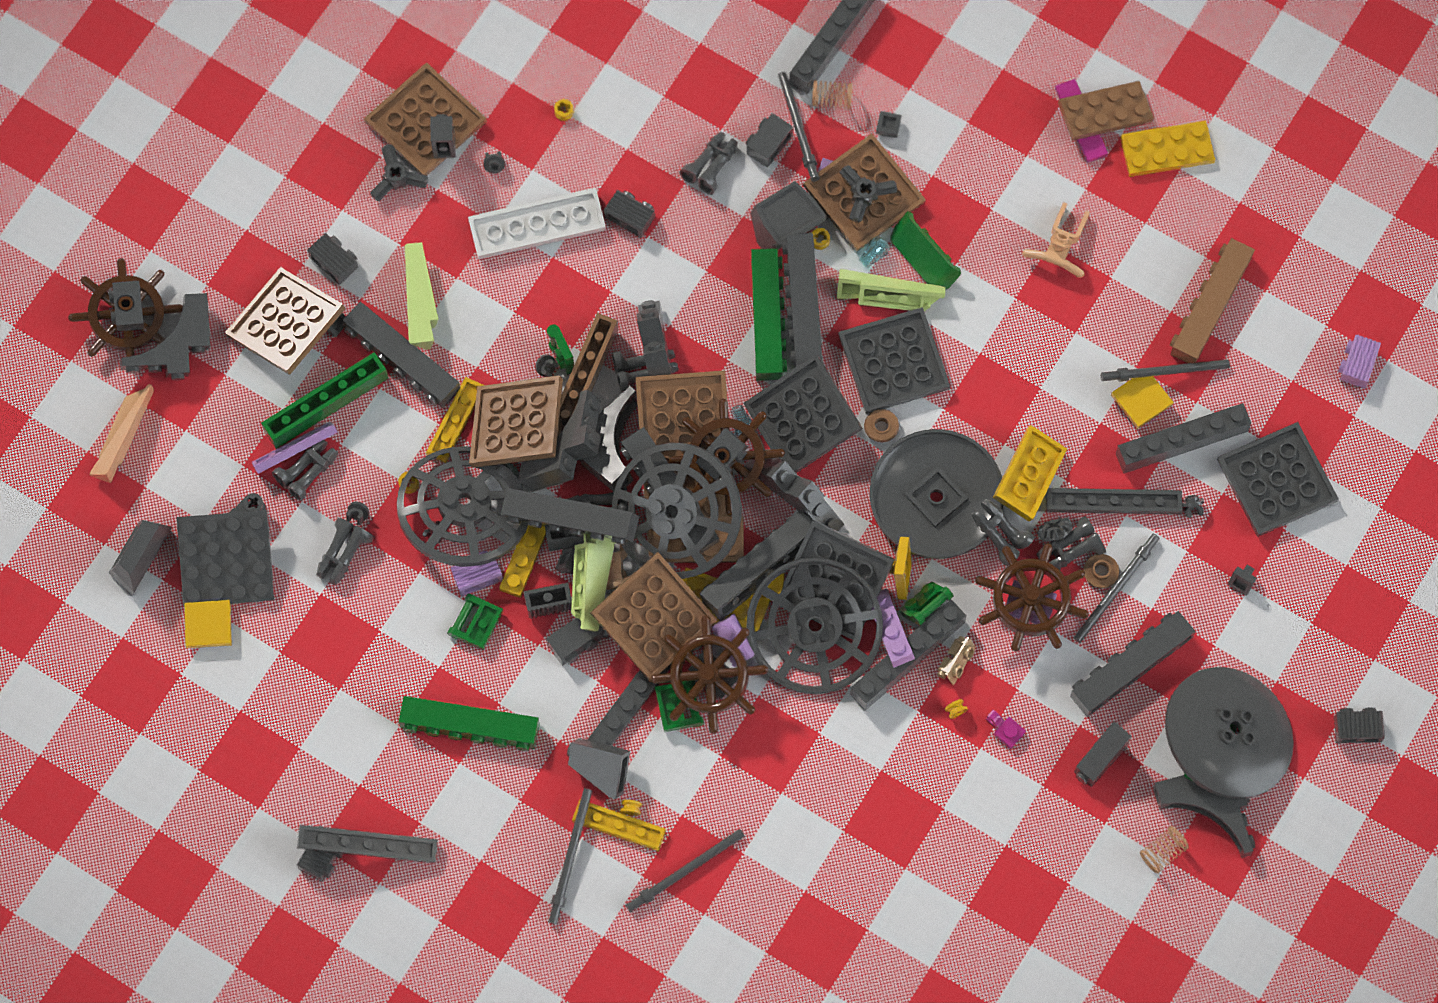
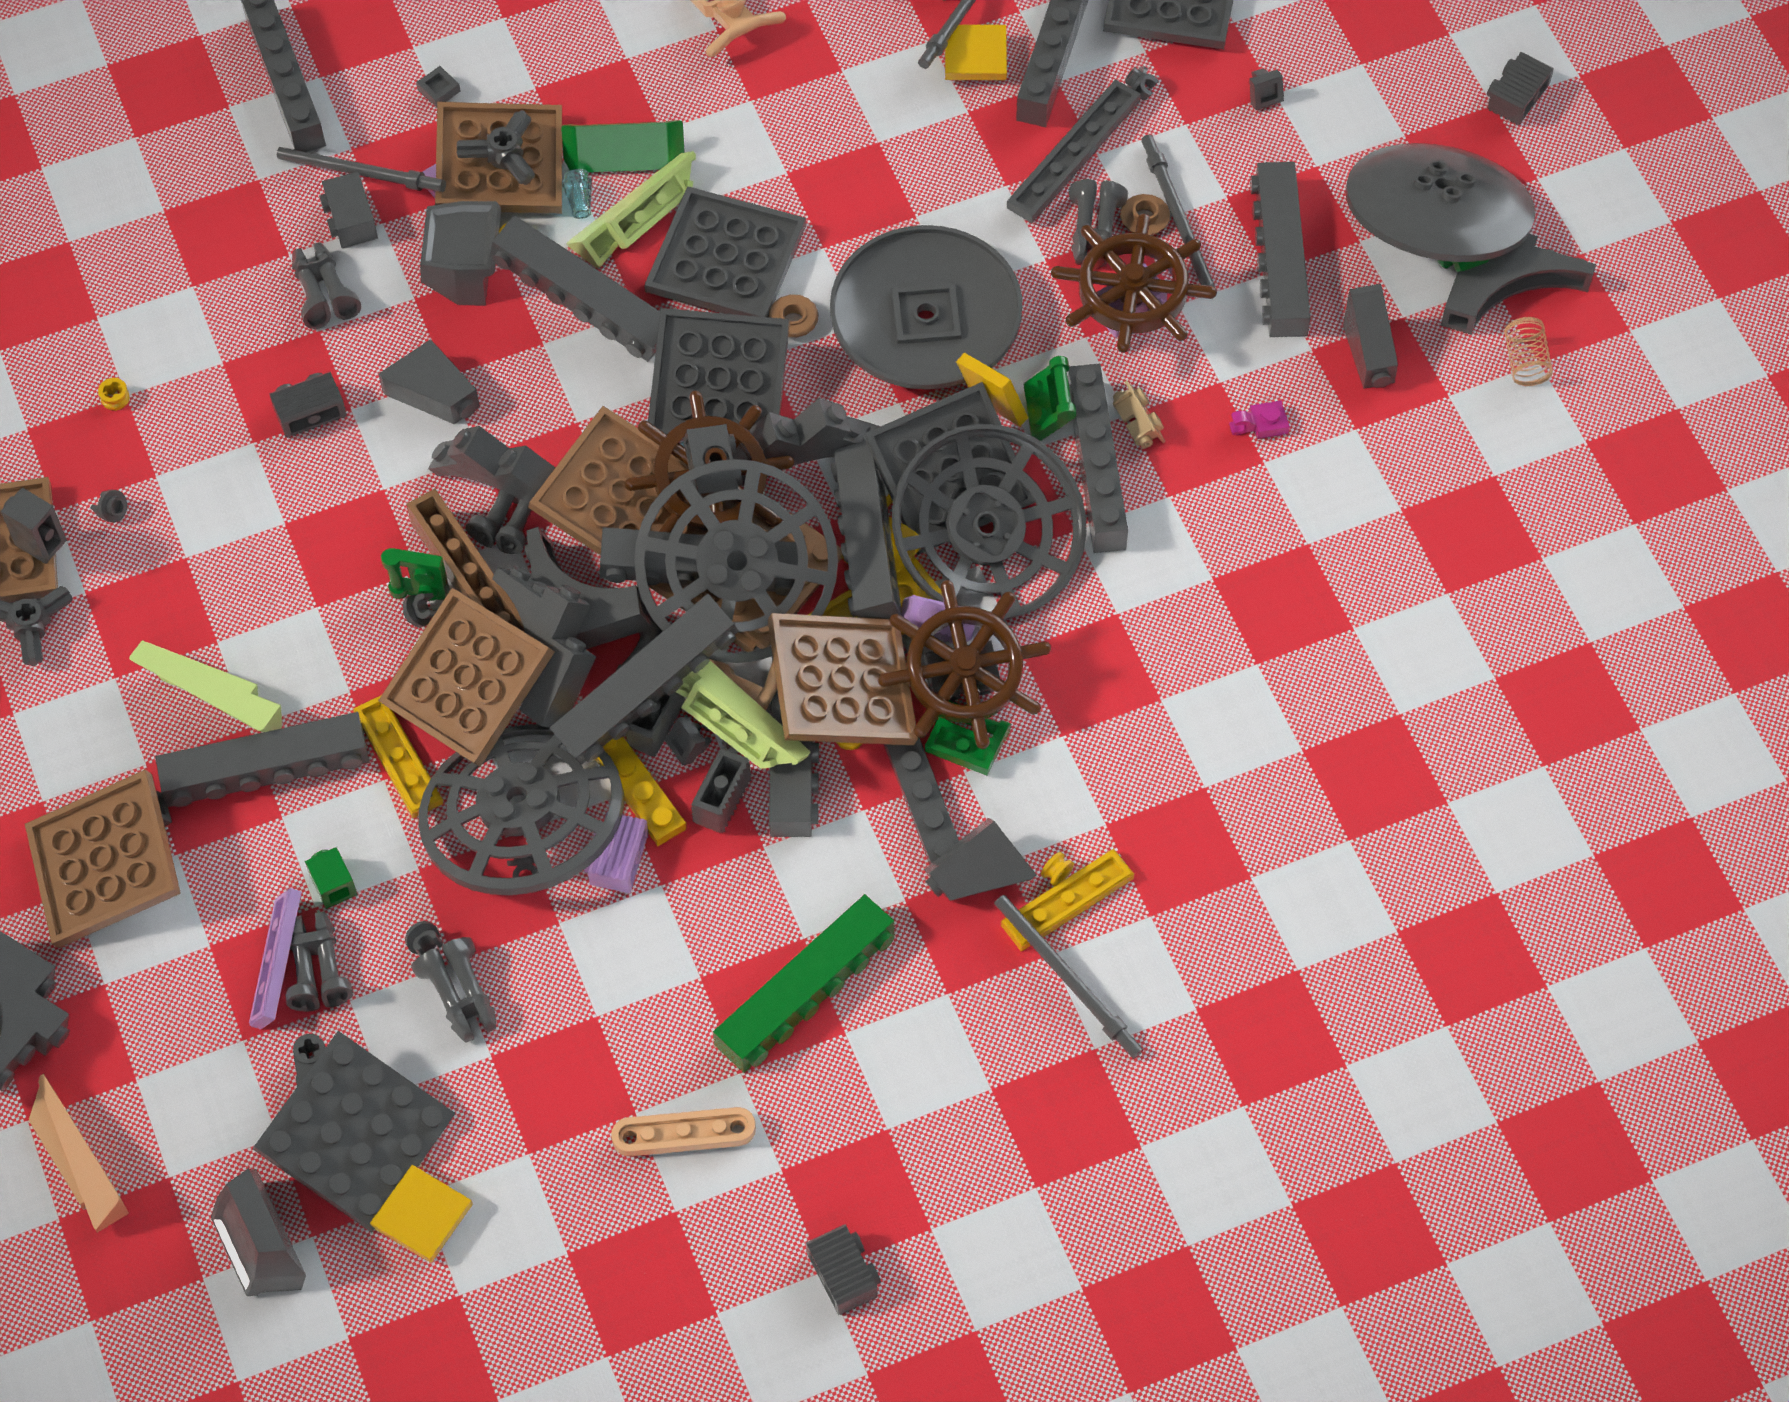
camera: 55 degrees left, 10 degrees down
(325, 400) = (246, 881): green brick -> none
(333, 258) = (68, 757): dark grey brick -> none
(342, 720) = (683, 1131): none -> light nougat plate
(359, 439) = (330, 877): none -> green brick
(367, 843) = (875, 1199): dark grey plate -> none
(413, 486) = (427, 868): yellow bush -> none
(481, 624) = (688, 890): green plate -> none
(537, 223) = (229, 509): white plate -> none
(648, 895) = (1182, 921): dark grey bar -> none
(691, 267) = (430, 384): none -> dark grey slope
(766, 314) = (559, 343): green brick -> none
(849, 94) = (365, 104): light nougat piece -> none
(893, 633) = (1075, 448): lavender plate -> none
(956, 709) = (1200, 452): yellow bush -> none
(1019, 539) = (1004, 268): dark grey piece -> none
(1030, 473) = (978, 202): yellow plate -> none
(1055, 529) = (1063, 222): dark grey gear -> none

